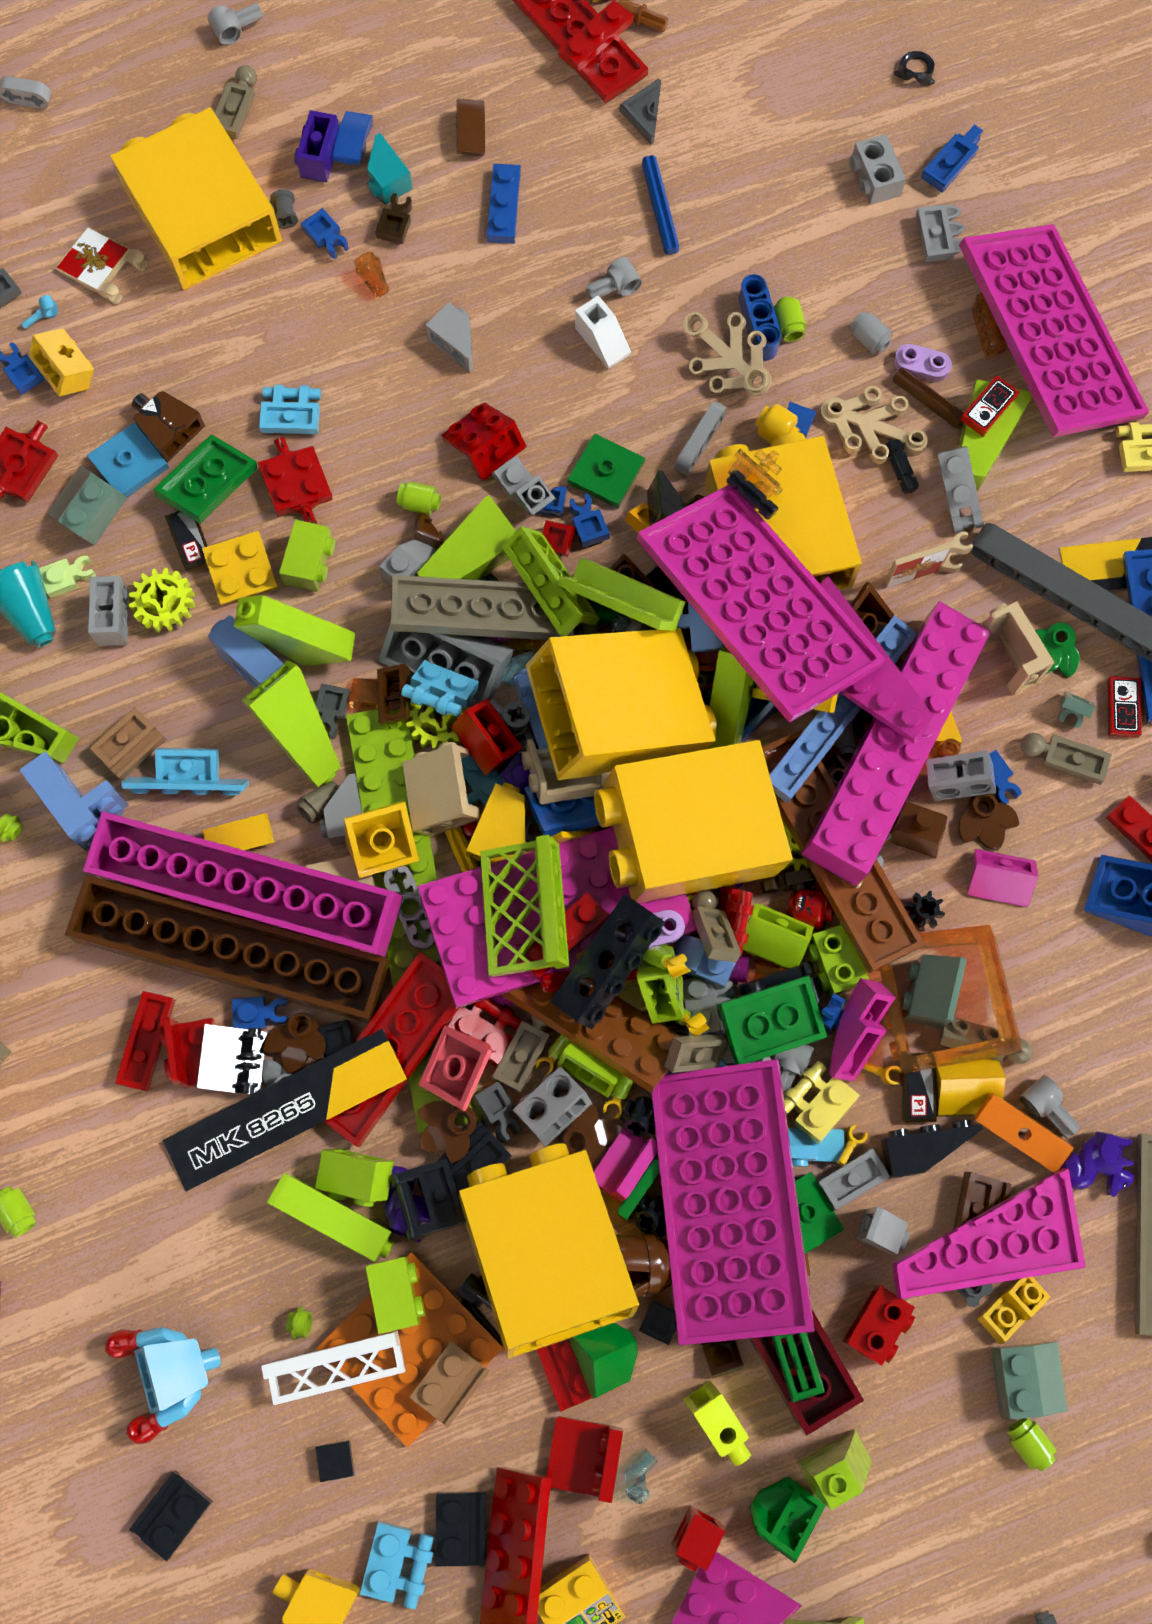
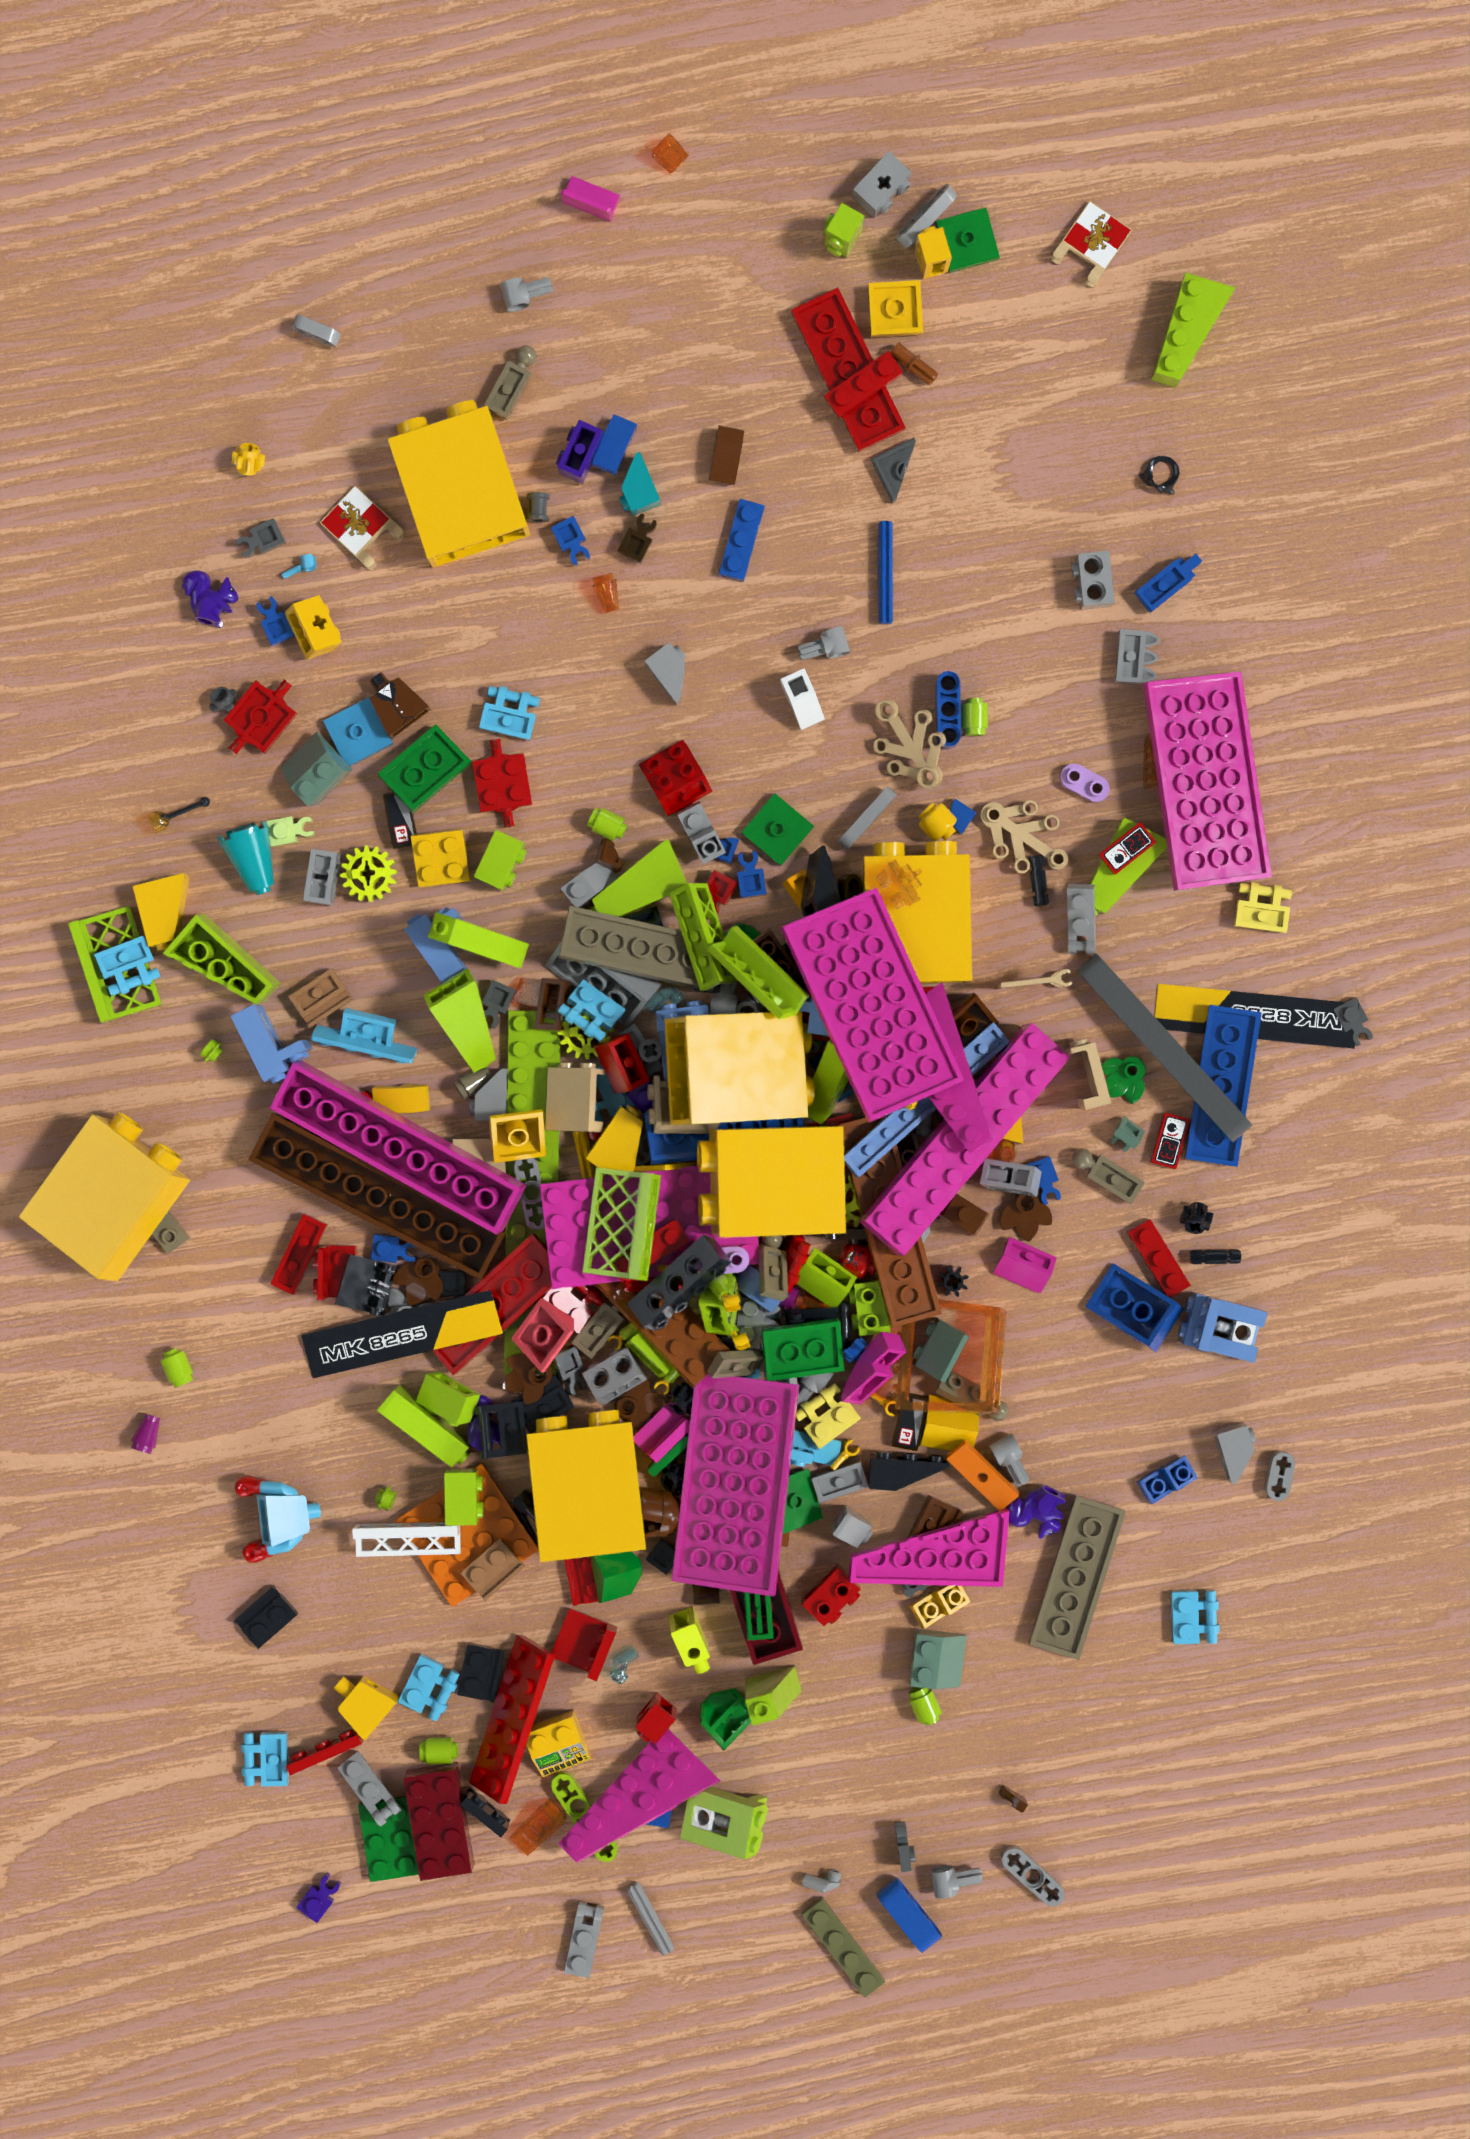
camera: 10 degrees right, 15 degrees up
(335, 1461) = (395, 1604): black tile -> none
(752, 494) = (890, 905): black axle -> none
(871, 332) = (1045, 746): light grey brick -> none
(928, 397) = (1081, 819): reddish brown axle -> none

